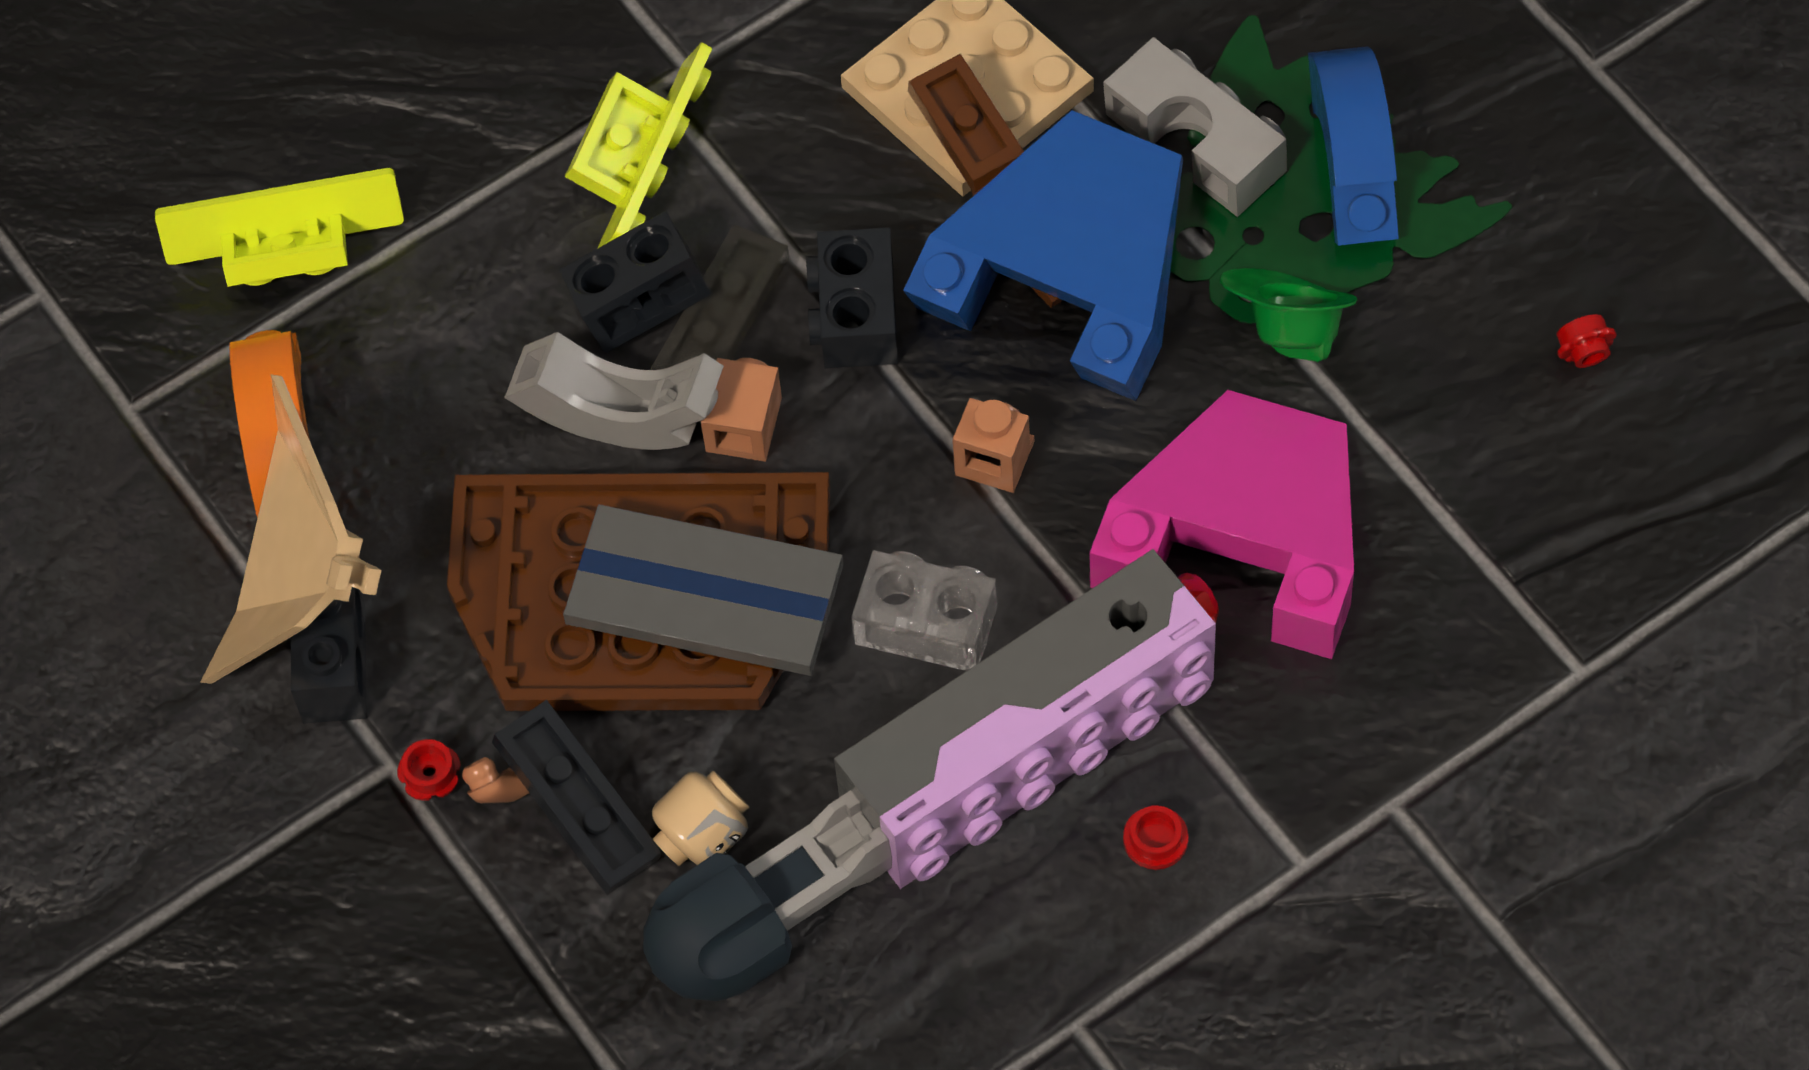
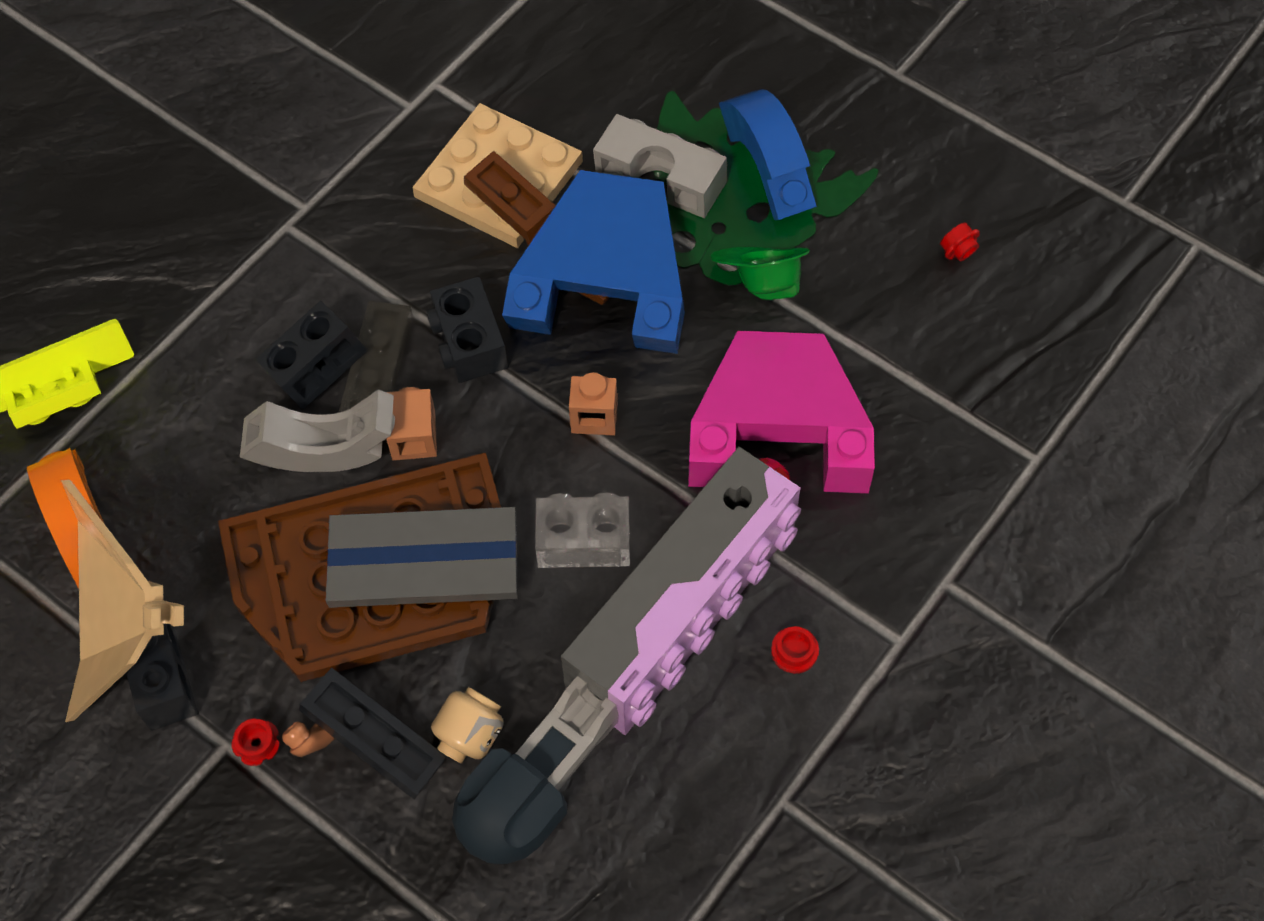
camera: 20 degrees left, 0 degrees up
(629, 138) = (280, 261): neon yellow bracket -> none

